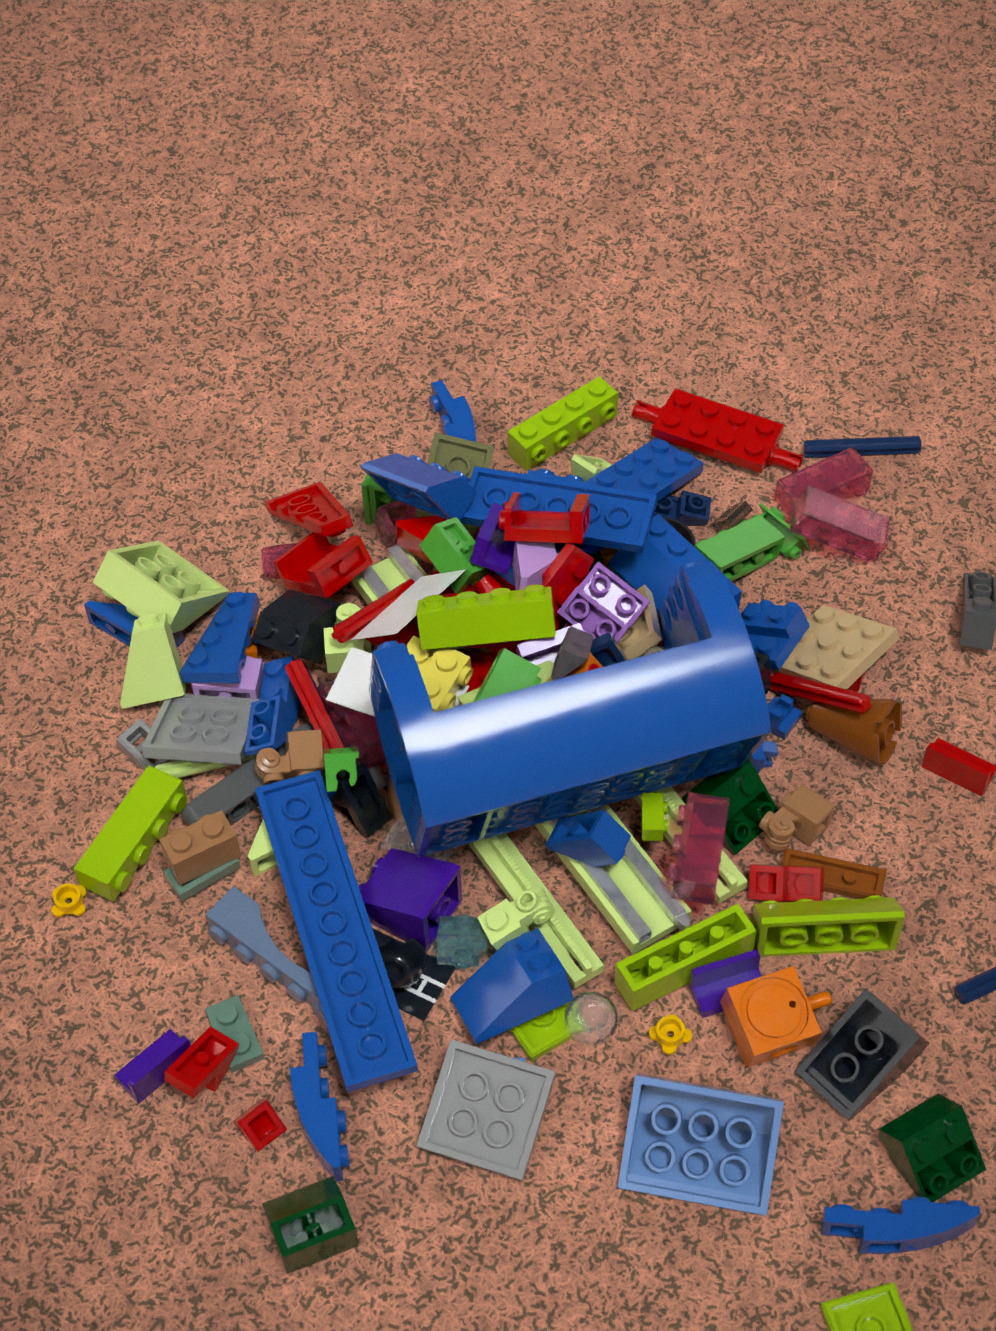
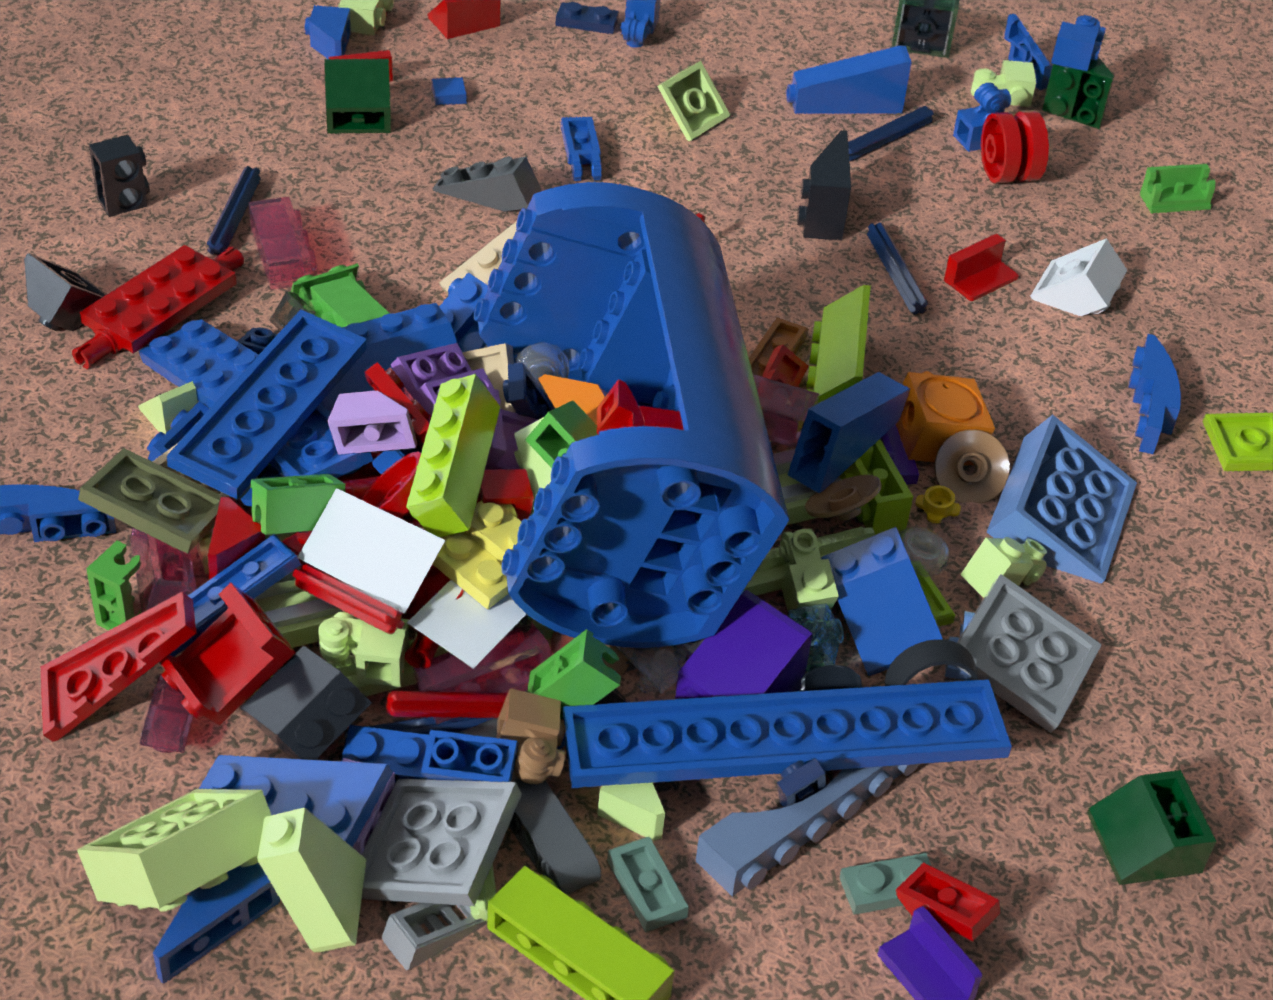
camera: 85 degrees left, 10 degrees down
(200, 847) = (638, 858): medium nougat brick -> none
(260, 1124) = (1011, 875): red slope -> none
(282, 937) = (800, 782): none -> dark blue plate
(317, 1111) = (1017, 810): blue slope -> none
(388, 550) = (250, 573): none -> blue tile
(421, 1029) = (927, 655): none -> black tyre
(422, 485) = (181, 502): blue slope -> none
(476, 664) = (508, 487): none -> red panel
(490, 548) = (301, 454): dark purple panel -> none
(545, 525) = (326, 379): red panel -> none
(562, 423) = (76, 412): lime brick -> none
(572, 652) = (535, 393): flat silver slope -> none
(589, 1084) = (1005, 557): none -> yellowish green brick
(601, 928) = (844, 497): none -> medium nougat dish
(686, 918) = (845, 428): none -> blue slope
(701, 370) = (58, 293): none -> slope
(718, 1052) = (990, 465): none -> medium nougat dish
(839, 524) = (352, 234): clear pink brick -> none
(847, 357) = (119, 175): none -> black brick
(861, 1055) = (983, 355): black slope -> none
(933, 1147) = (1078, 355): dark green slope -> none

